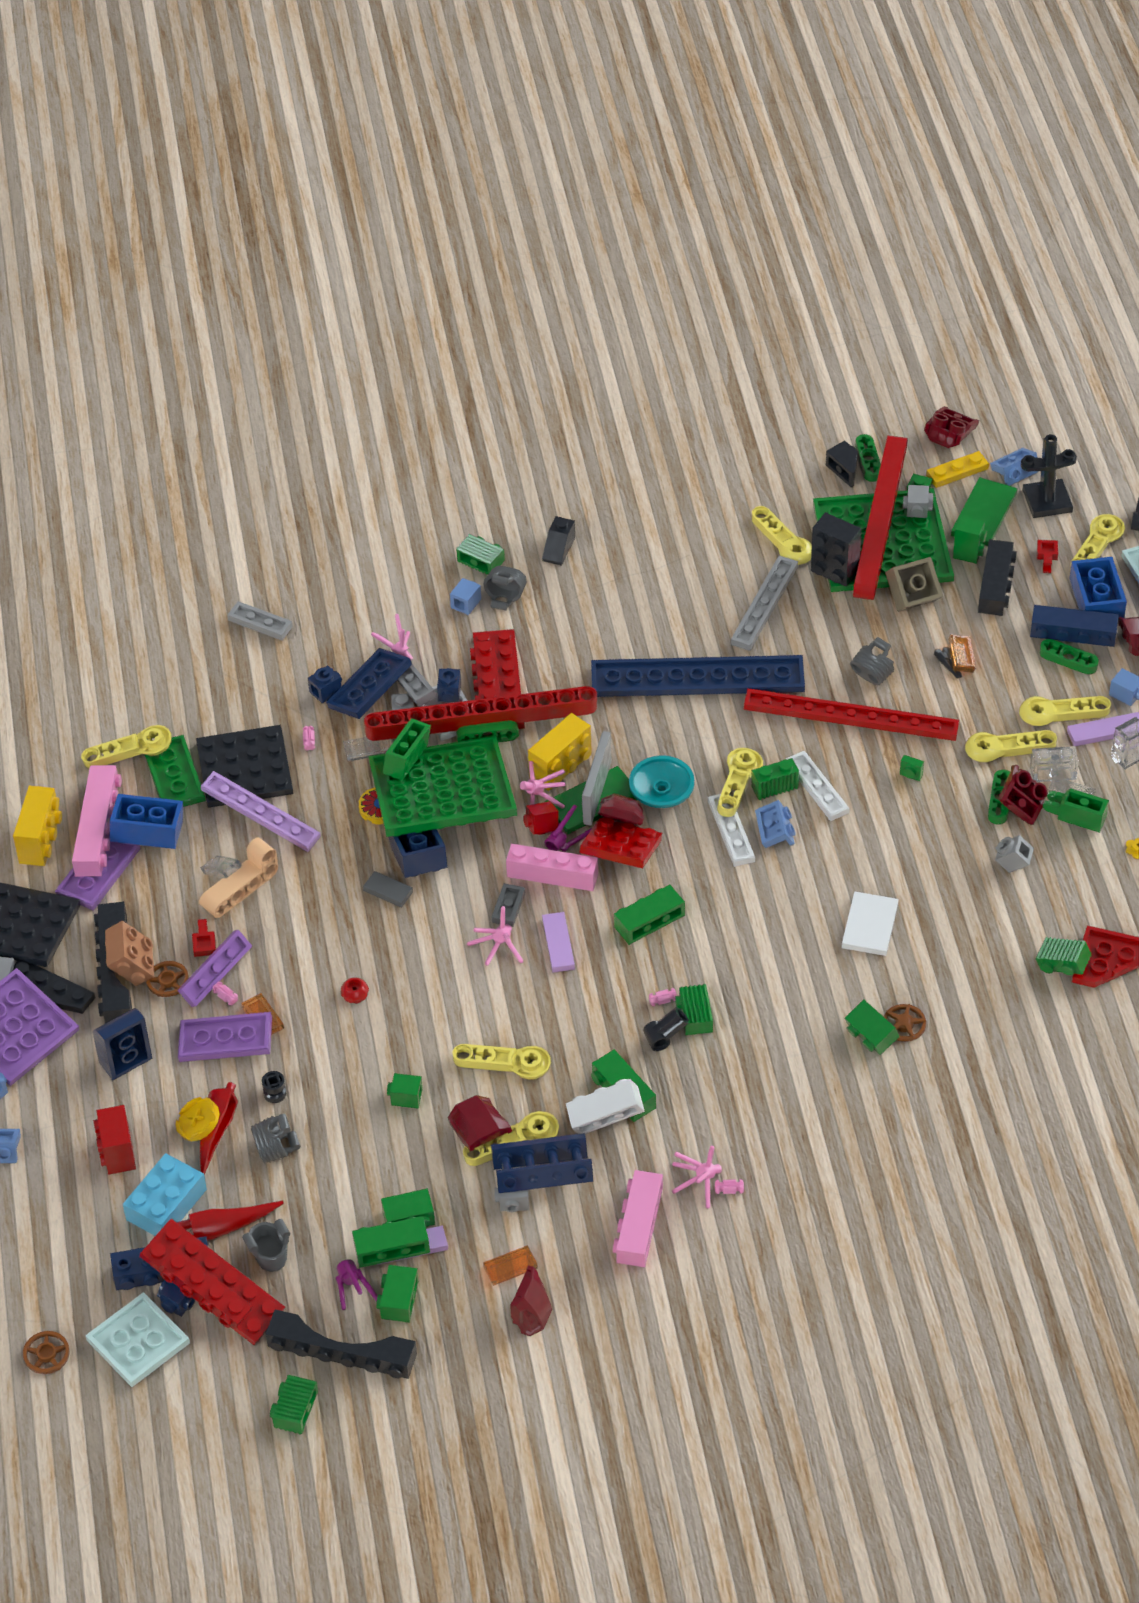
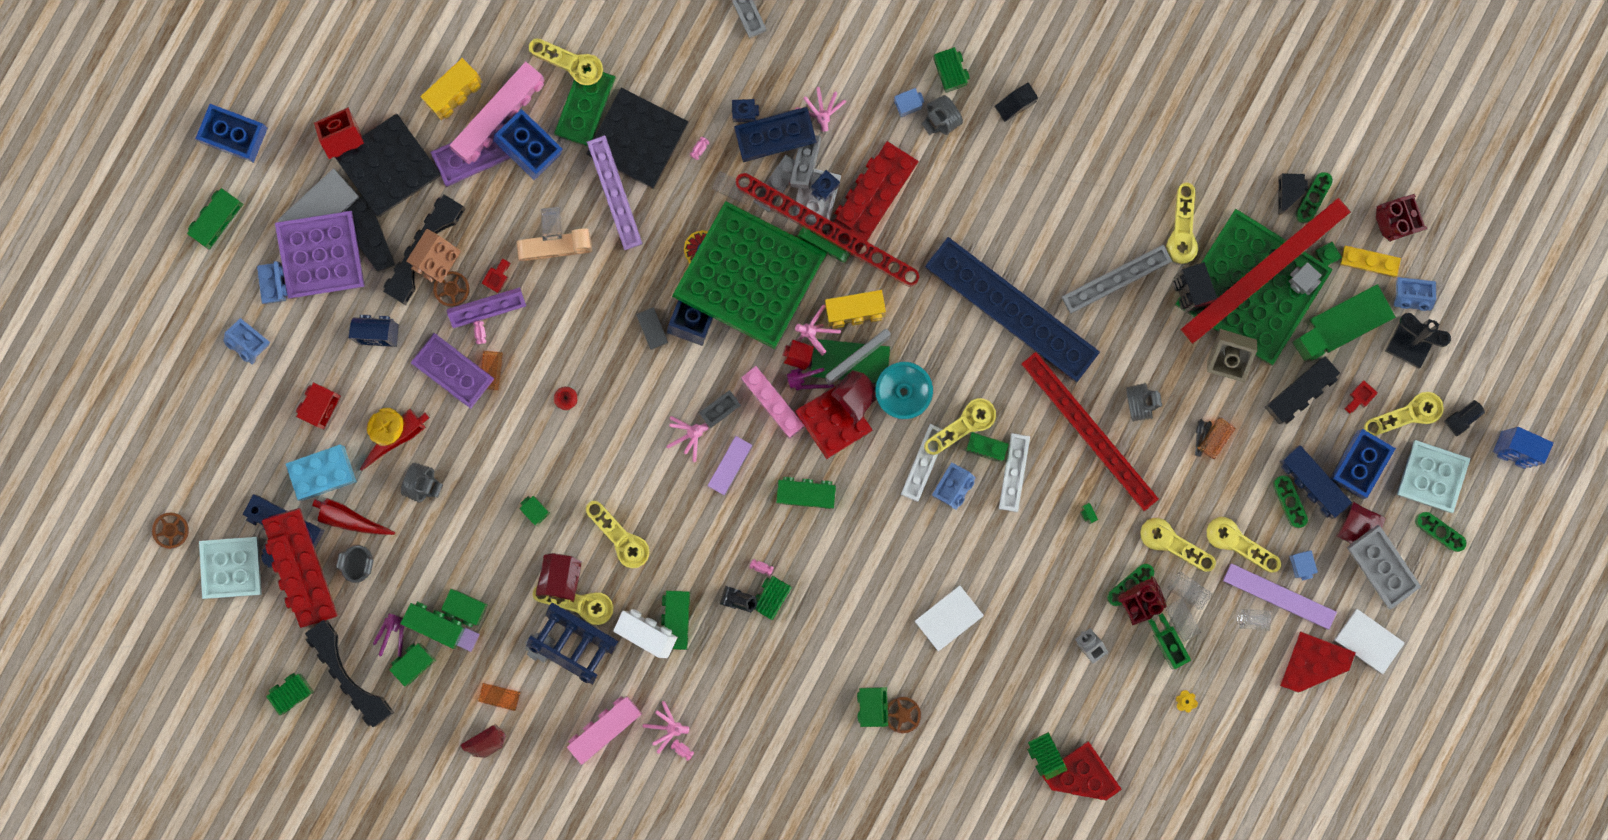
camera: 35 degrees right, 35 degrees up
(274, 1087) = (456, 439): black wheel -> none
(406, 749) = (746, 227): green brick -> none

